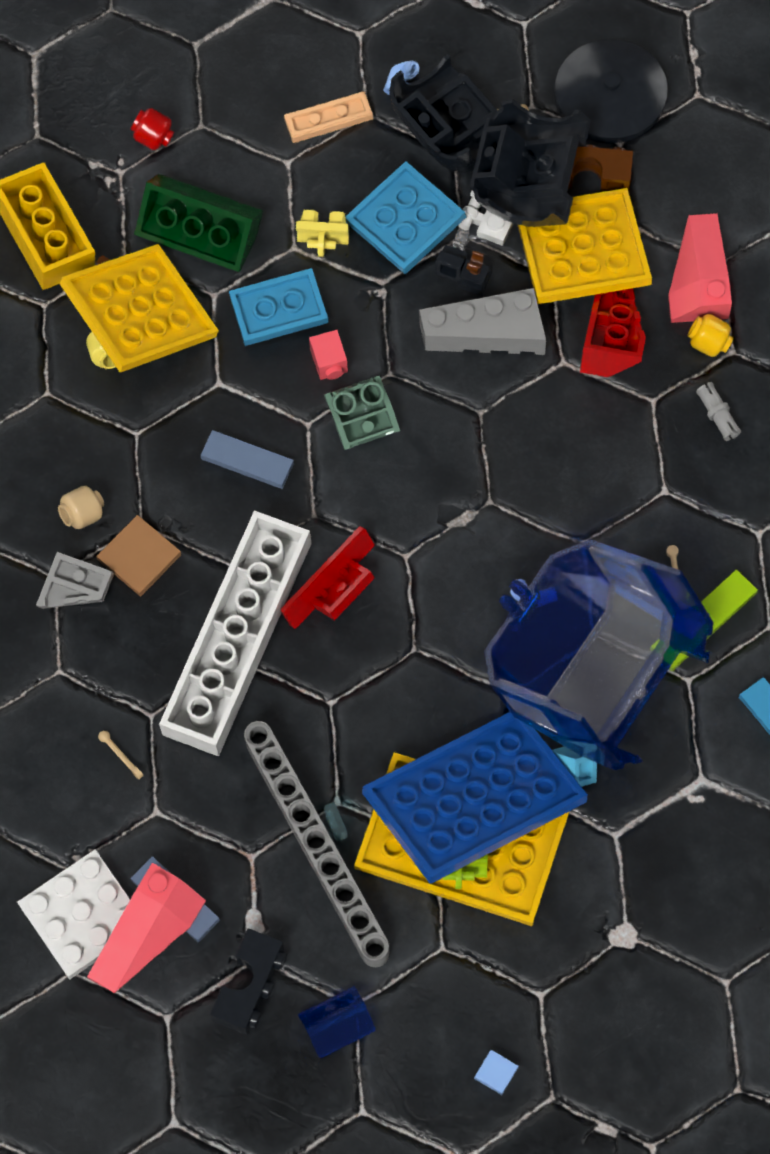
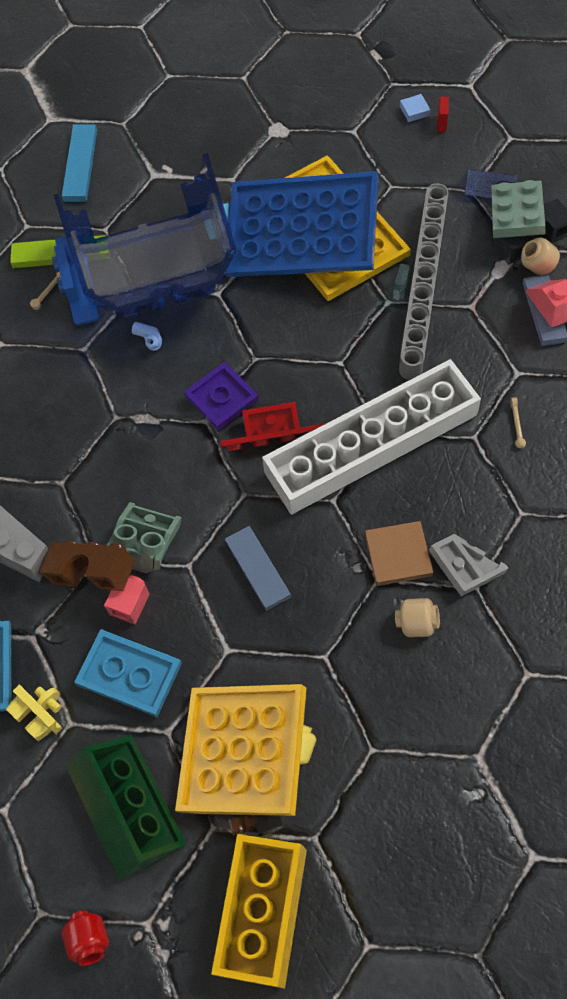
camera: 140 degrees left, 5 degrees down
(216, 946) = (540, 256): none -> tan head
(275, 980) = (518, 209): none -> sand green plate
(358, 354) = (104, 564): none -> reddish brown arch
(408, 581) = (221, 396): none -> dark purple plate
(454, 1076) = (442, 115): none -> red tile

